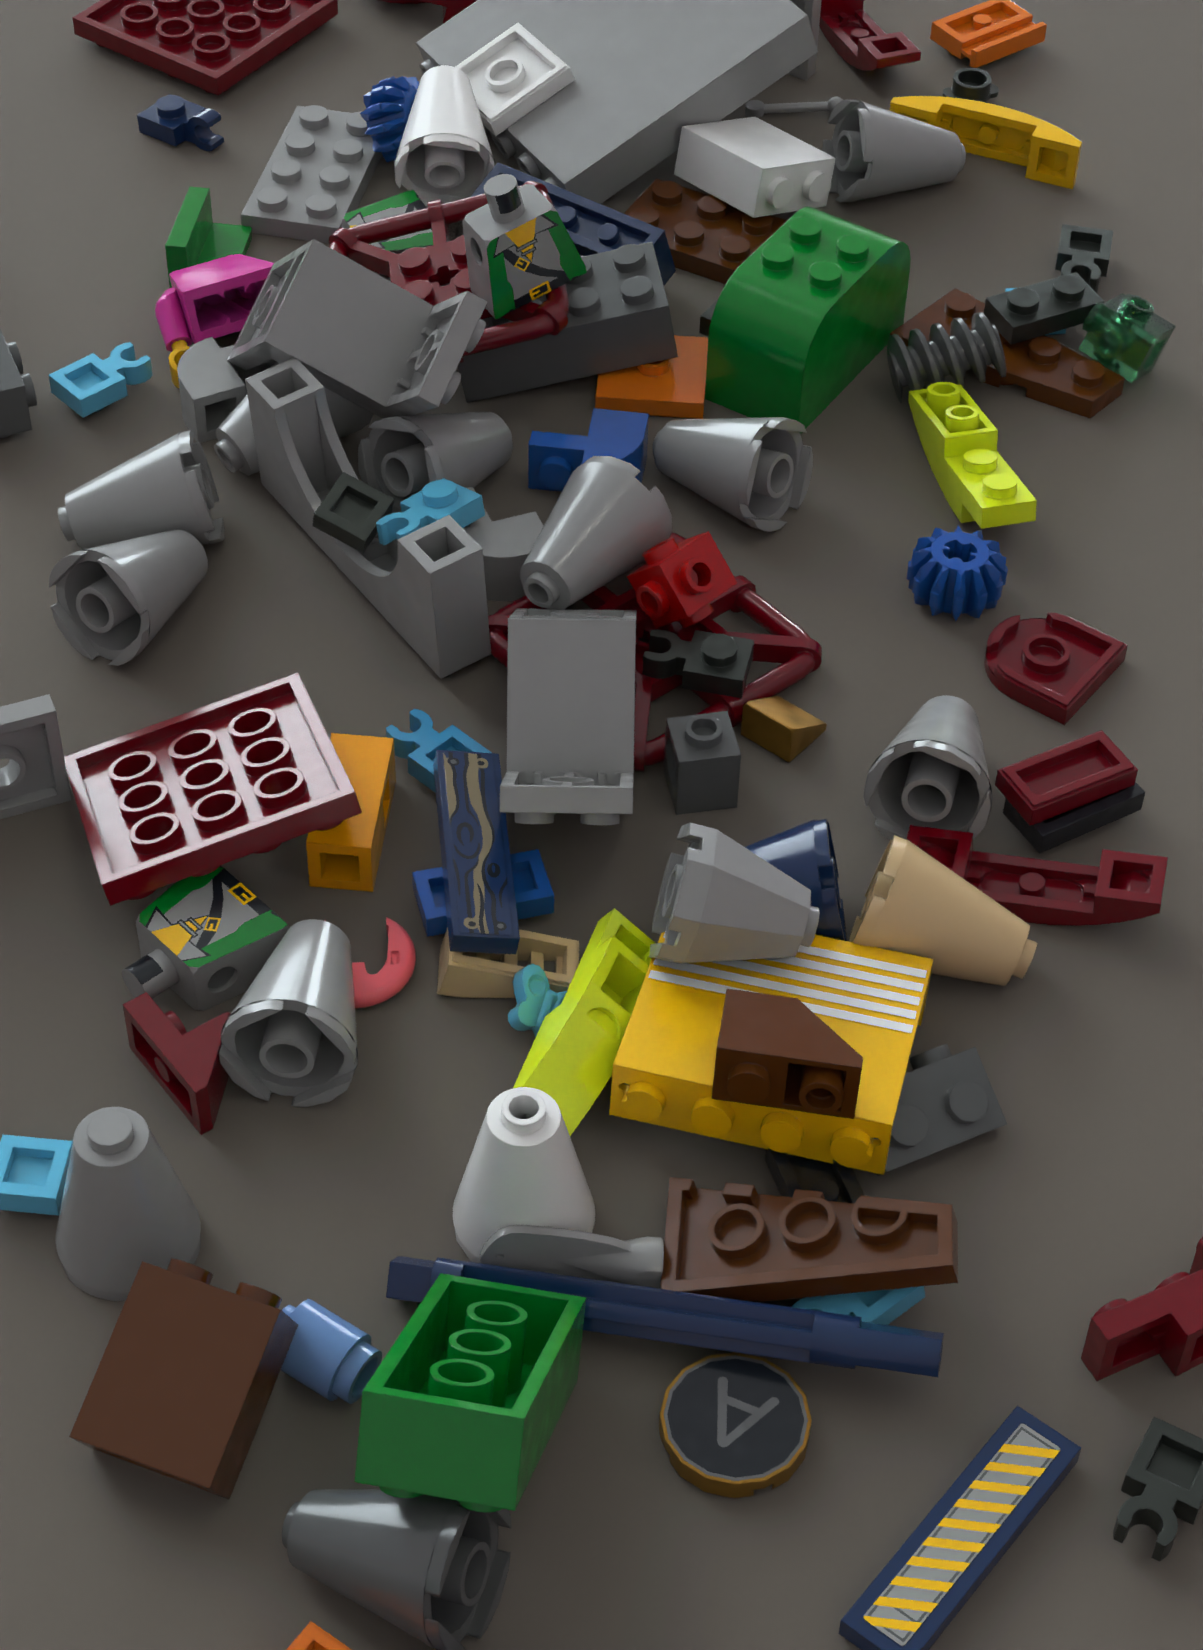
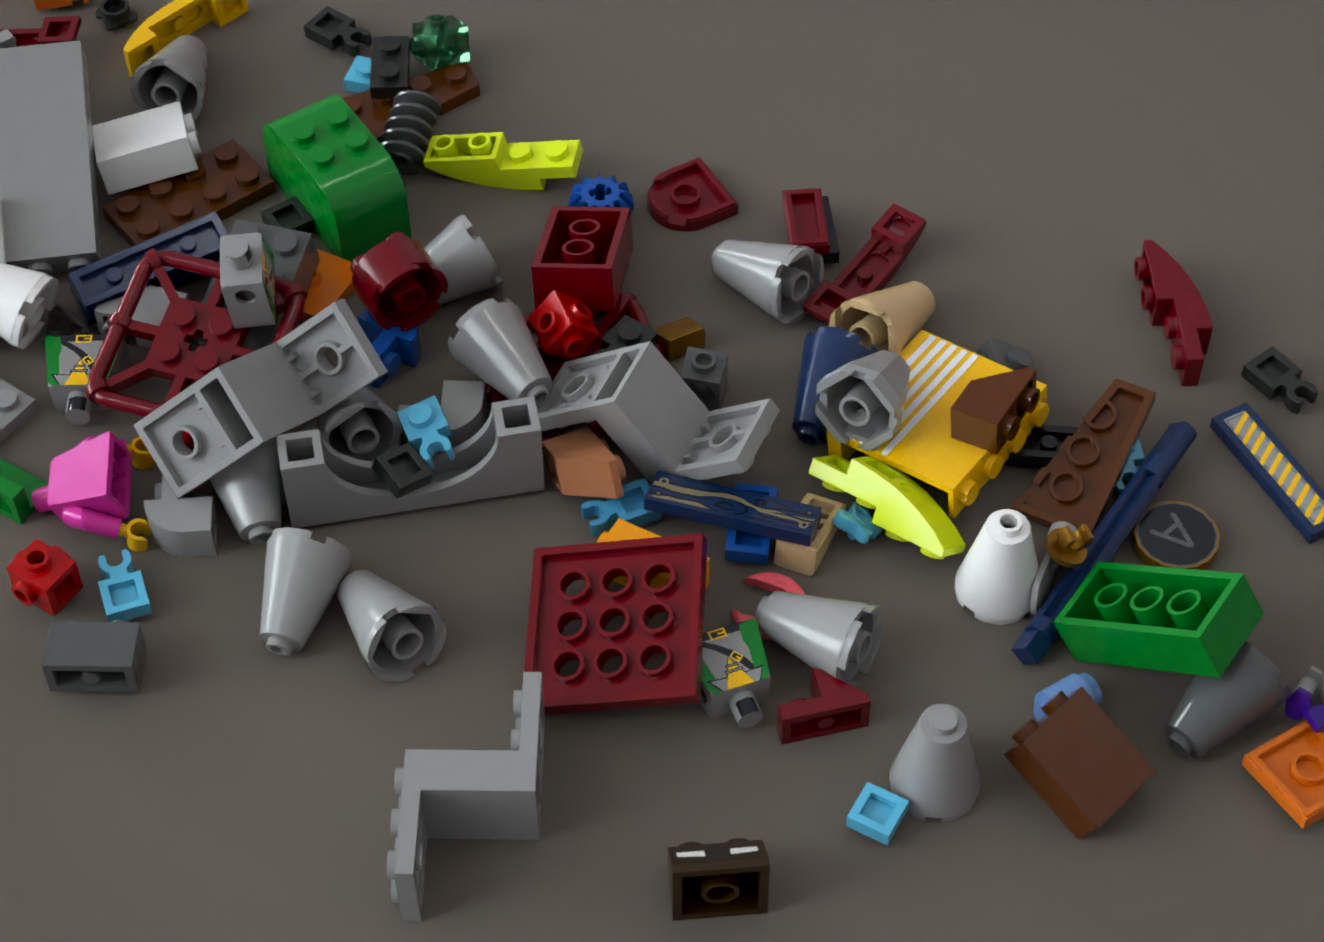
camera: 65 degrees left, 5 degrees up
(77, 311) = (44, 577): none -> red brick
(470, 684) = (584, 465): none -> nougat slope
(588, 1246) = (1069, 547): none -> pearl gold plate
(631, 395) = (398, 282): none -> dark red brick
(824, 566) = (584, 255): none -> dark red brick

